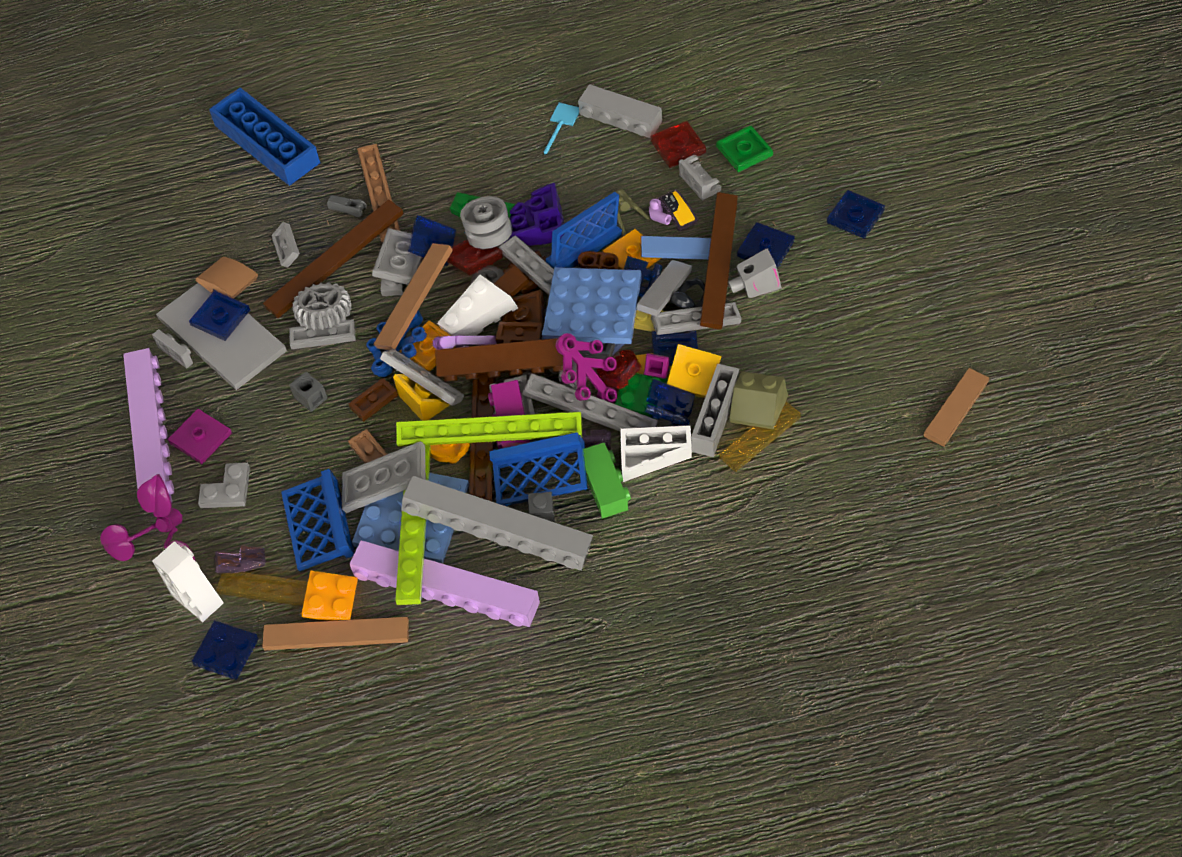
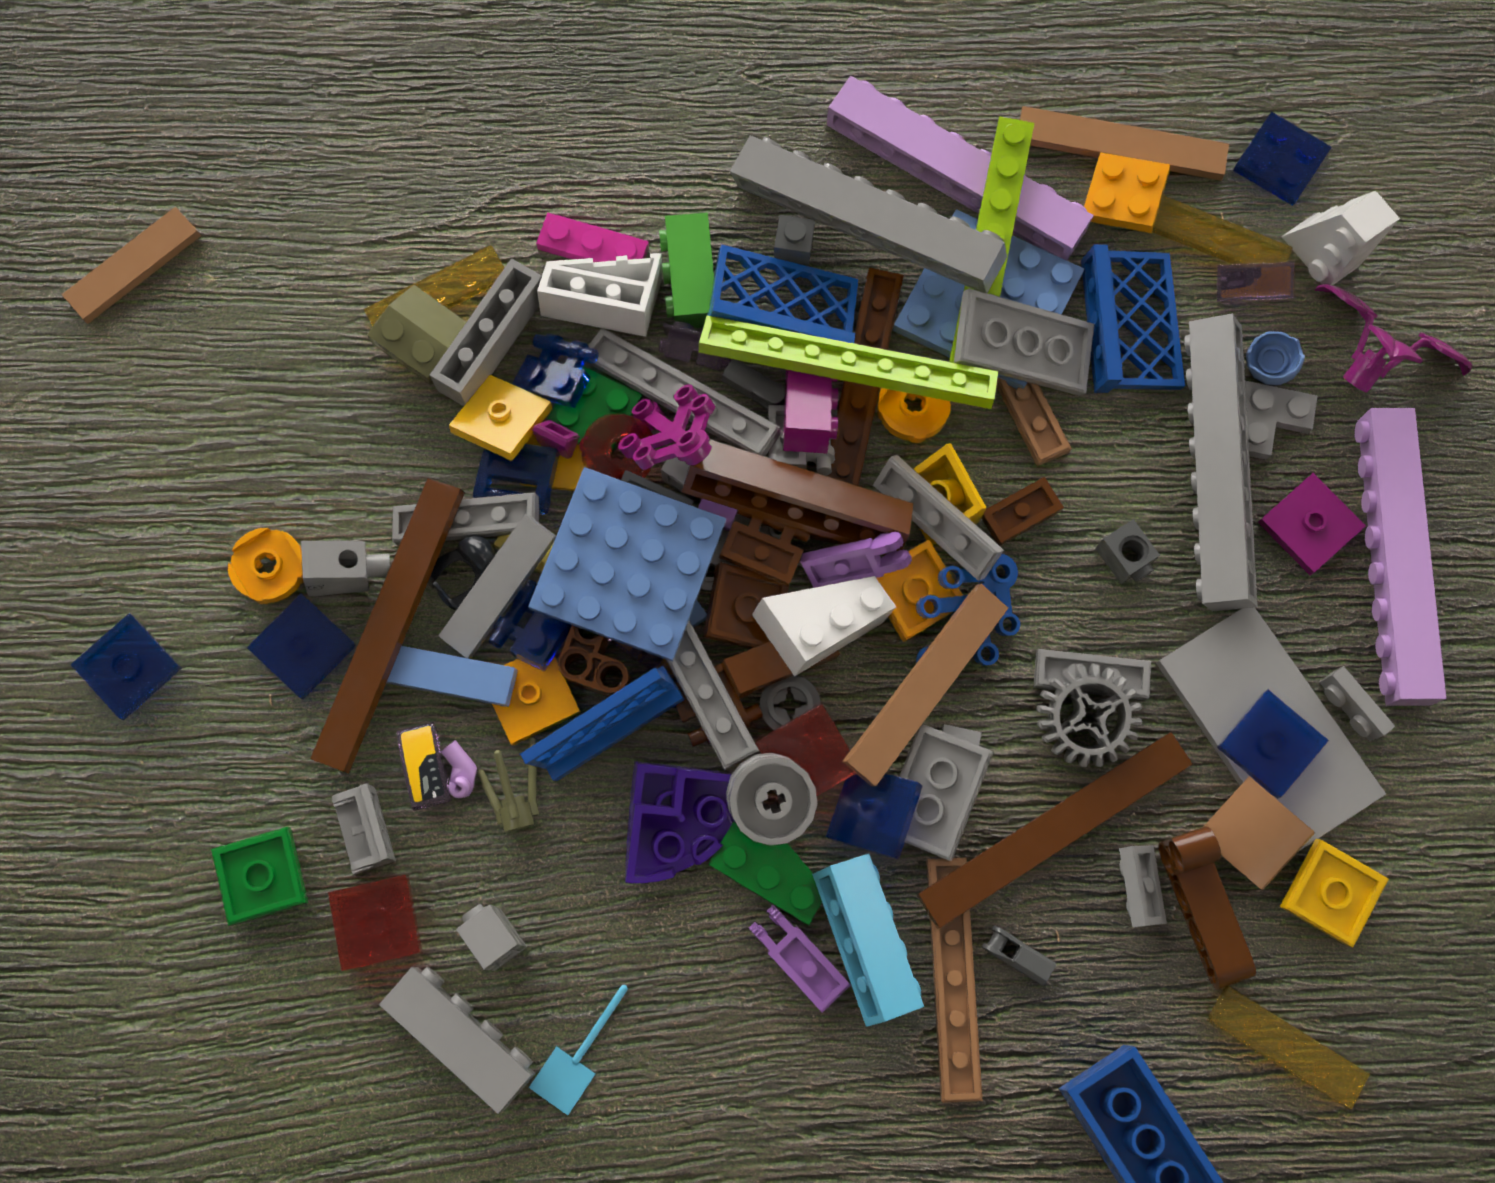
camera: 175 degrees left, 20 degrees up
(183, 265) = (1334, 893): none -> yellow plate
(206, 202) = (1288, 1047): none -> clear yellow tile
(225, 512) = (1274, 358): none -> medium blue hair
(254, 247) = (1206, 906): none -> reddish brown beam
(256, 449) = (1221, 464): none -> light grey brick
(424, 189) = (868, 940): none -> medium azure brick
(458, 178) = (802, 962): none -> medium lavender hinge
(614, 143) = (490, 936): none -> light grey brick
(672, 486) = (582, 241): none -> dark pink plate
(800, 285) = (246, 562): none -> light orange plate

